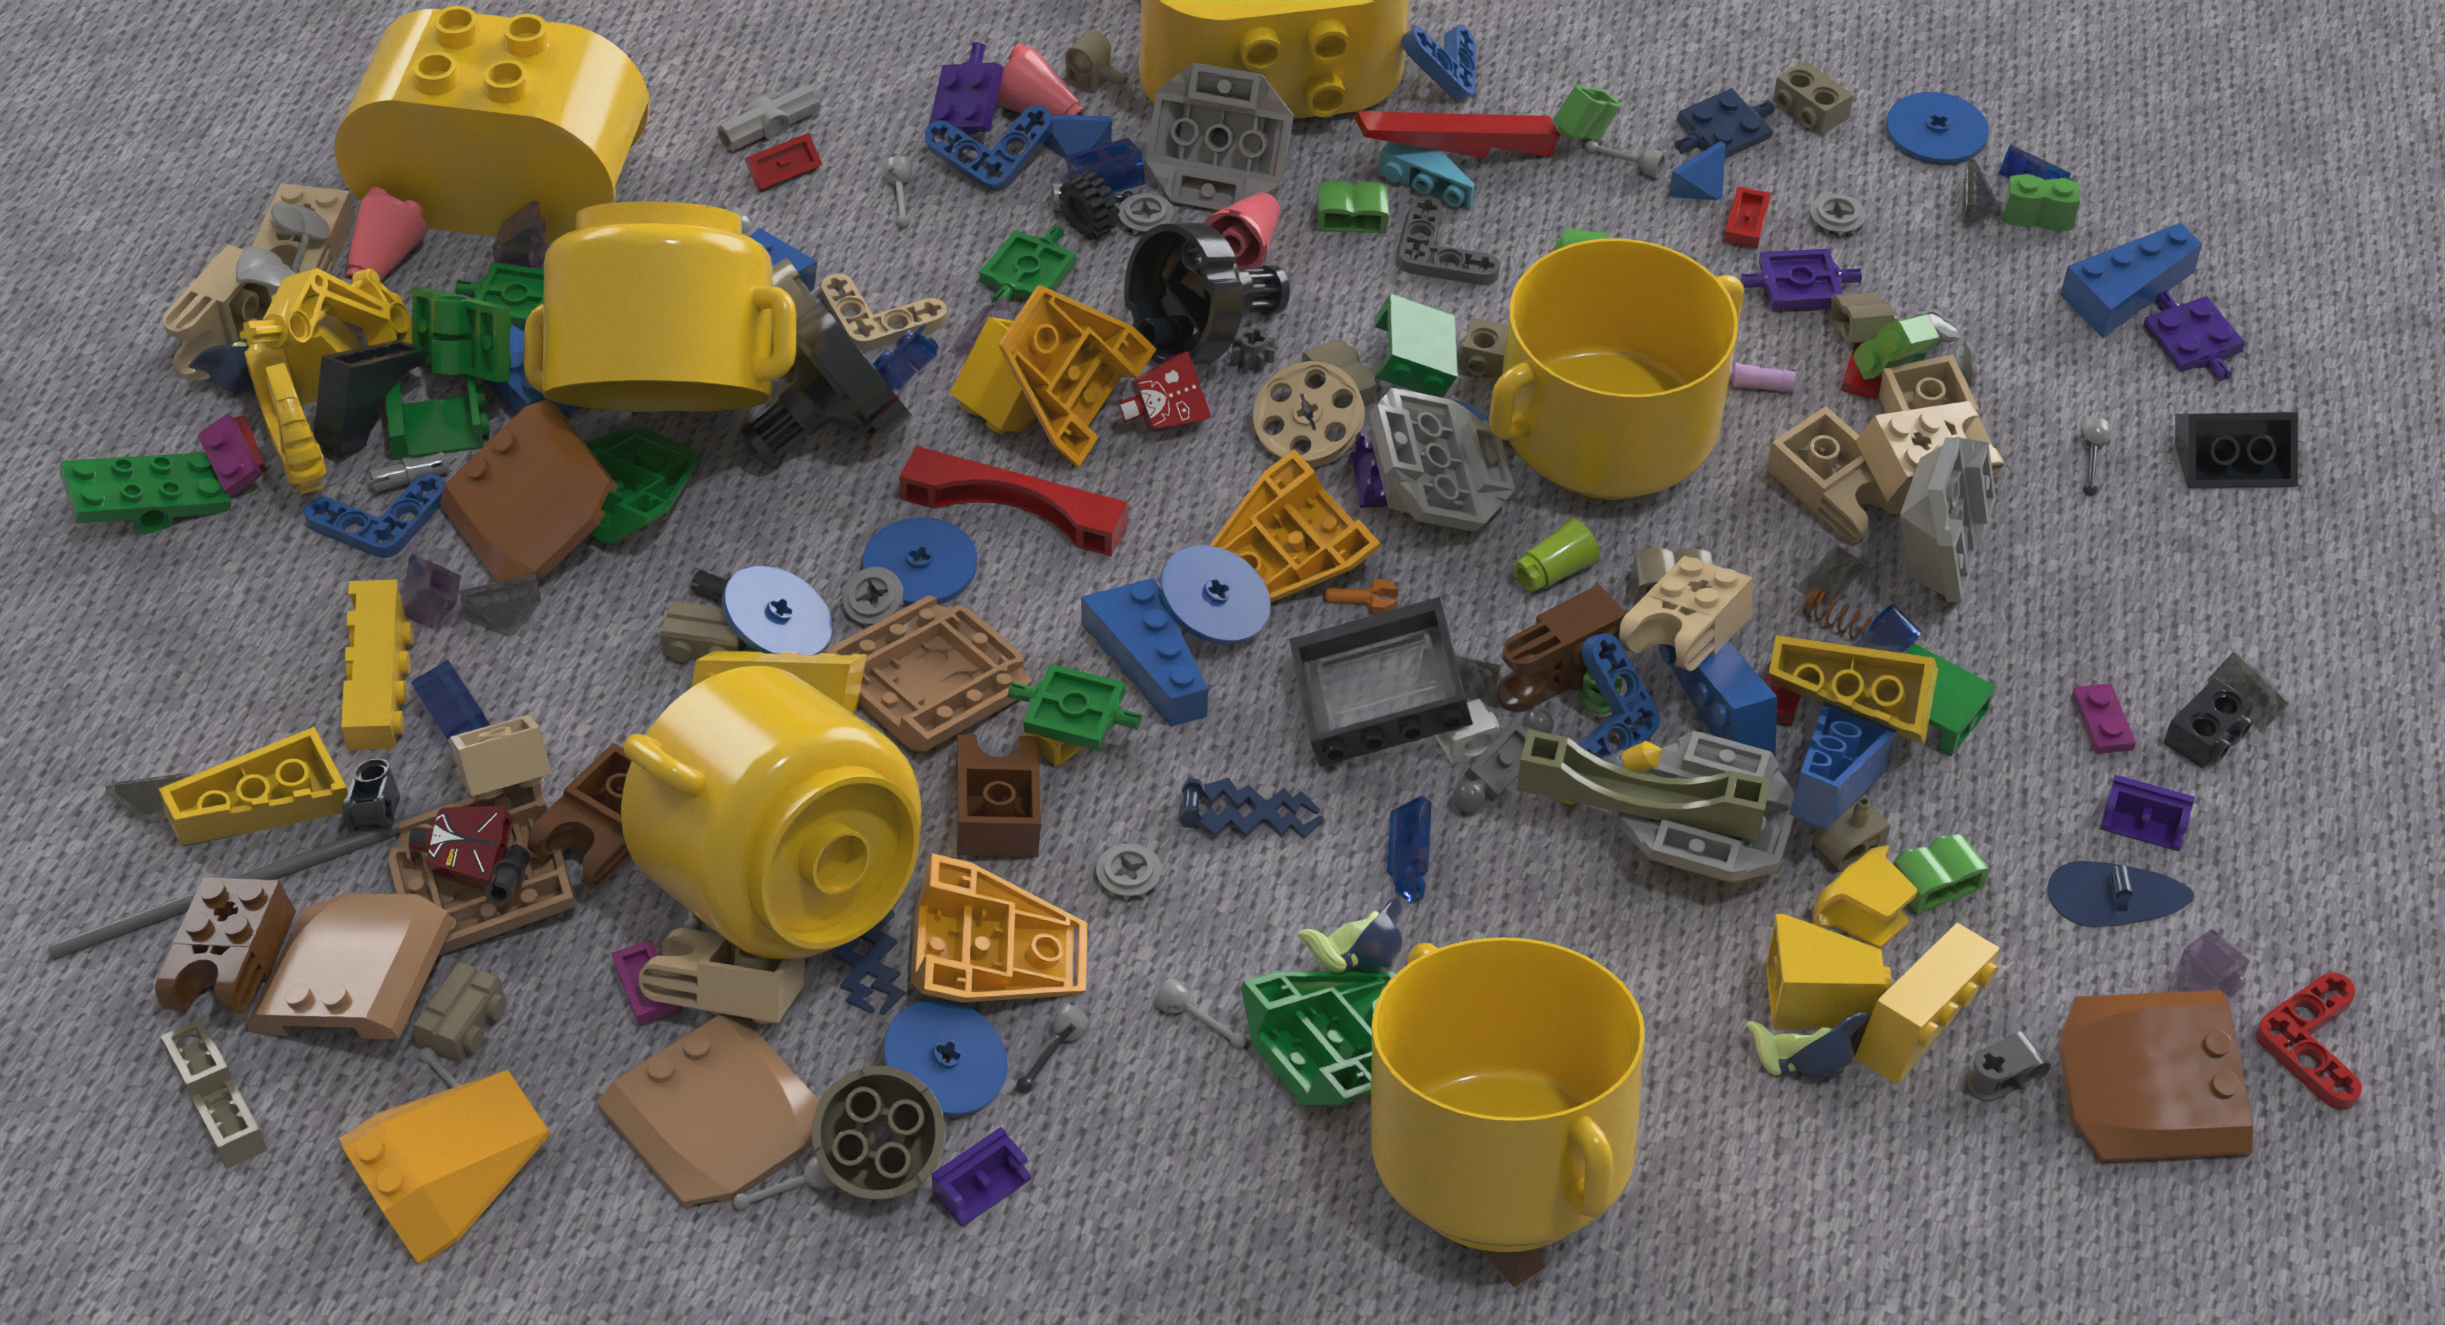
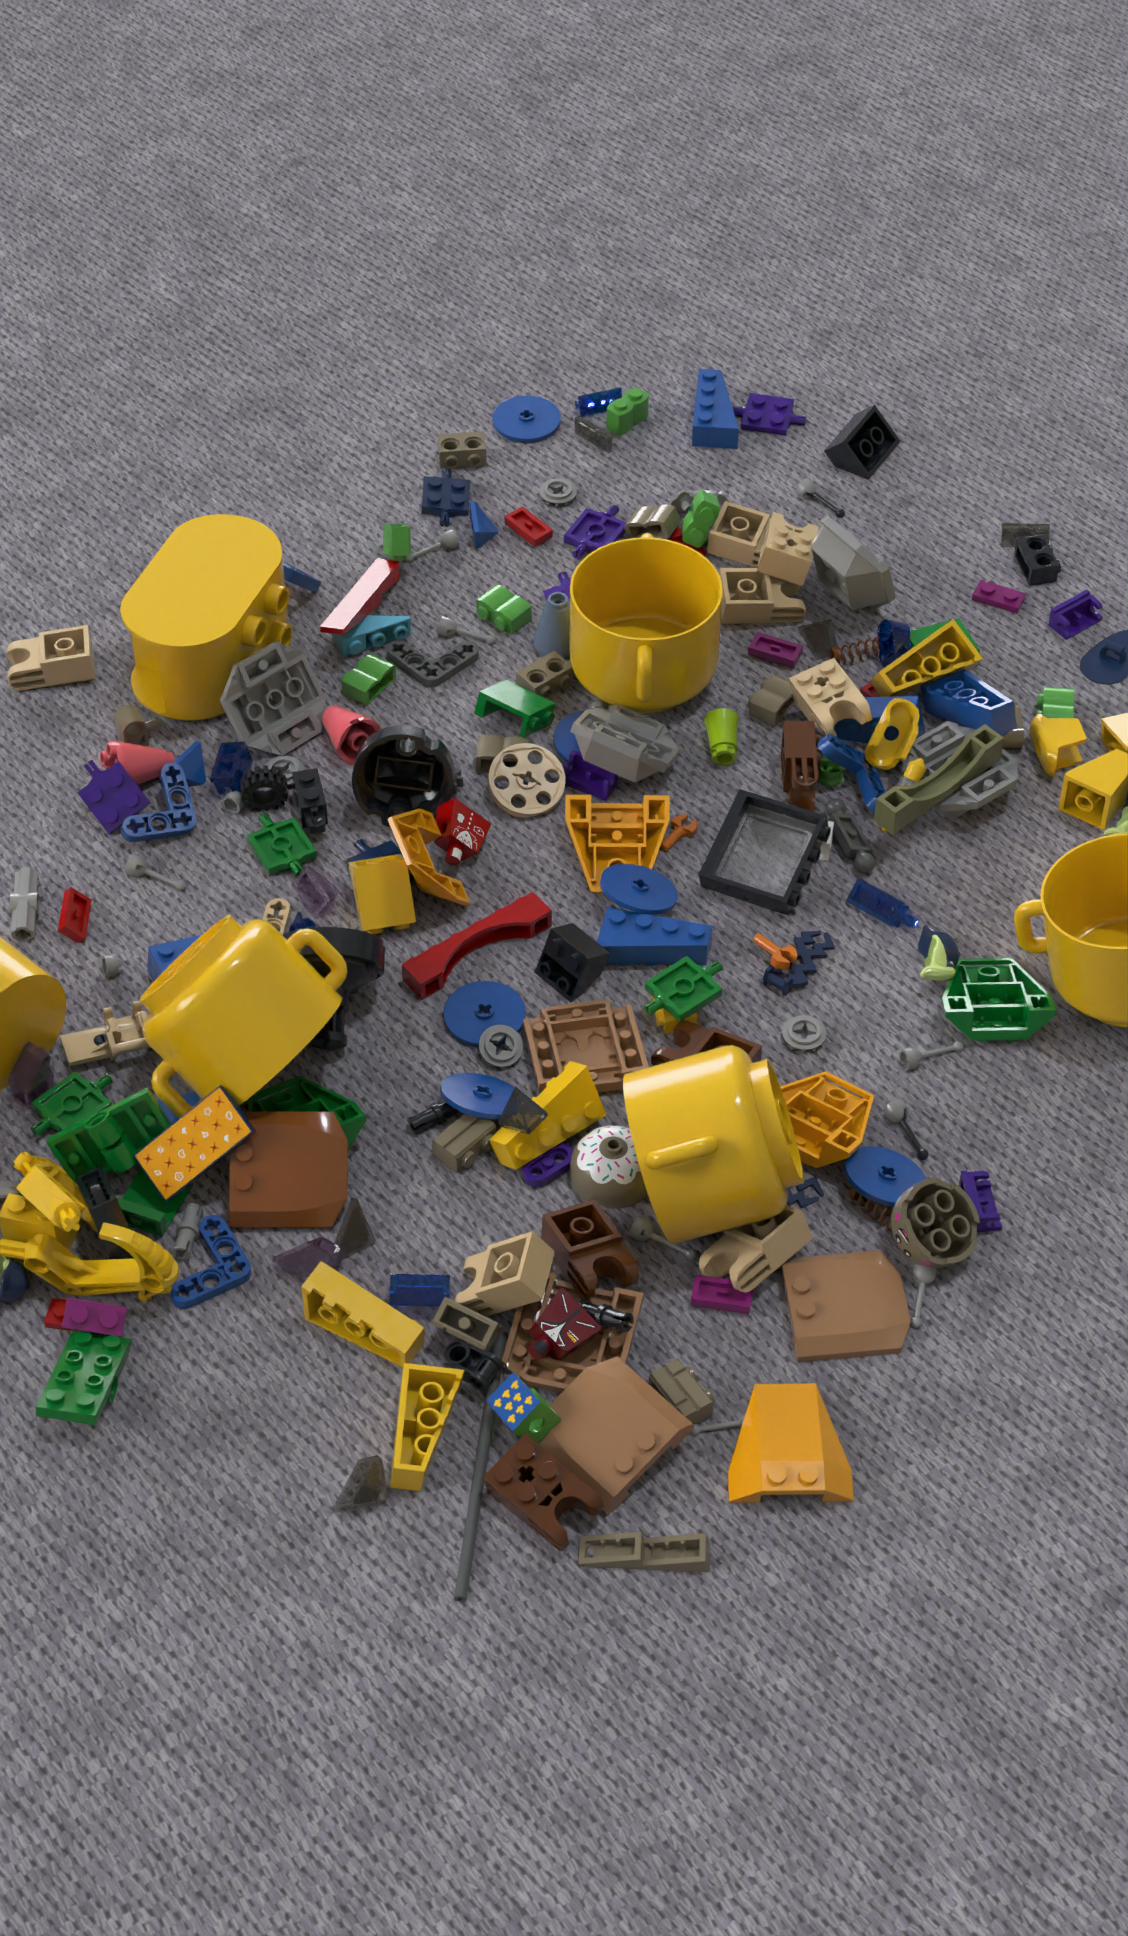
camera: 55 degrees left, 0 degrees up
(306, 863) = (523, 1409): none -> piece
(417, 760) = (467, 1324): none -> dark tan brick
(488, 396) = (194, 1143): none -> light orange tile
(747, 646) = (521, 1113): none -> clear smoke slope
(1050, 589) = (571, 961): none -> black slope
(1106, 254) = (310, 800): none -> black hinge
(1234, 778) = (779, 955): none -> orange bar
(1504, 231) = (448, 627): none -> light grey hinge
(1670, 696) = (885, 753): none -> yellow piece
(1766, 539) = (775, 650): none -> magenta plate

